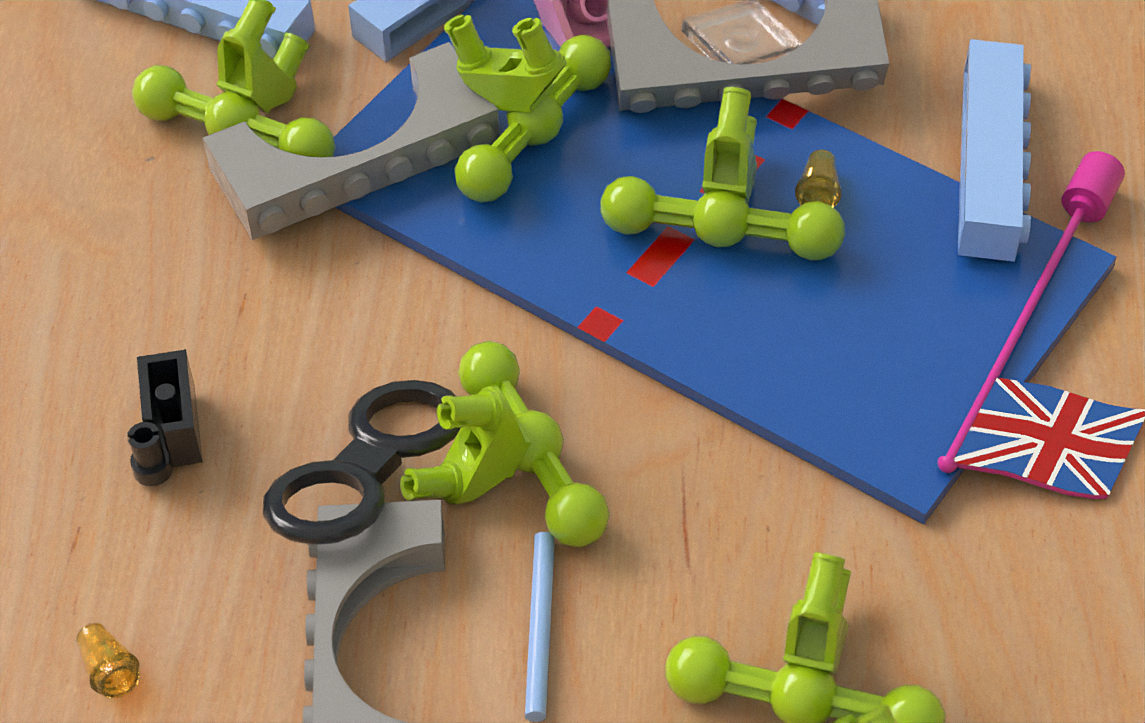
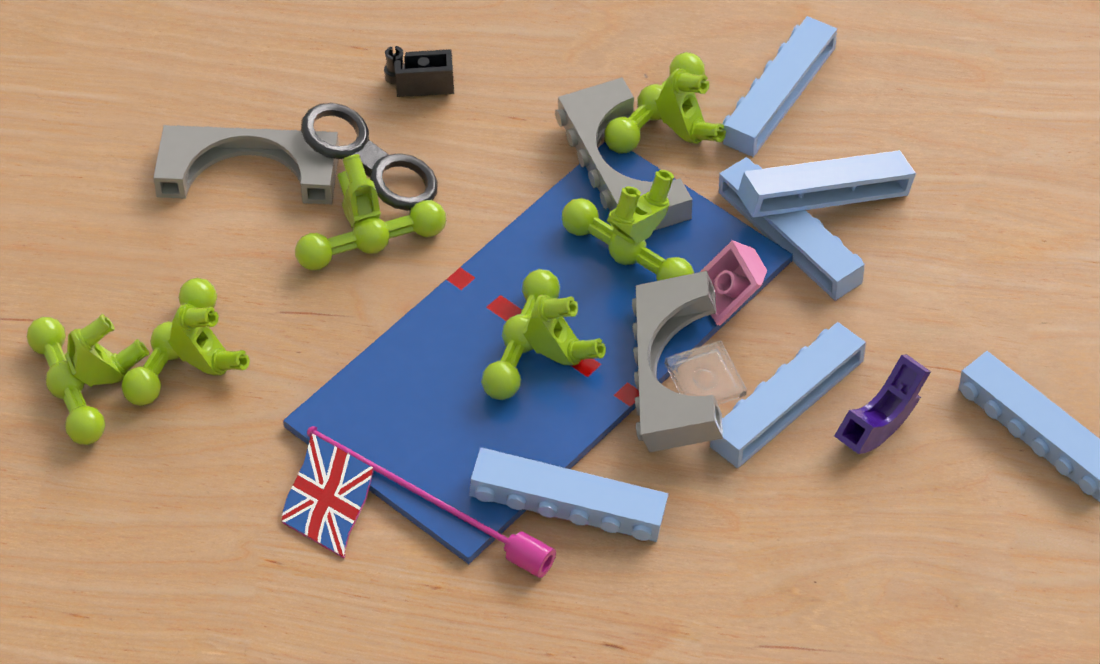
camera: 95 degrees right, 0 degrees up
(107, 662) = (269, 55): clear yellow cone -> none
(539, 627) = (245, 237): light blue bar -> none
(819, 180) = (551, 394): clear yellow cone -> none

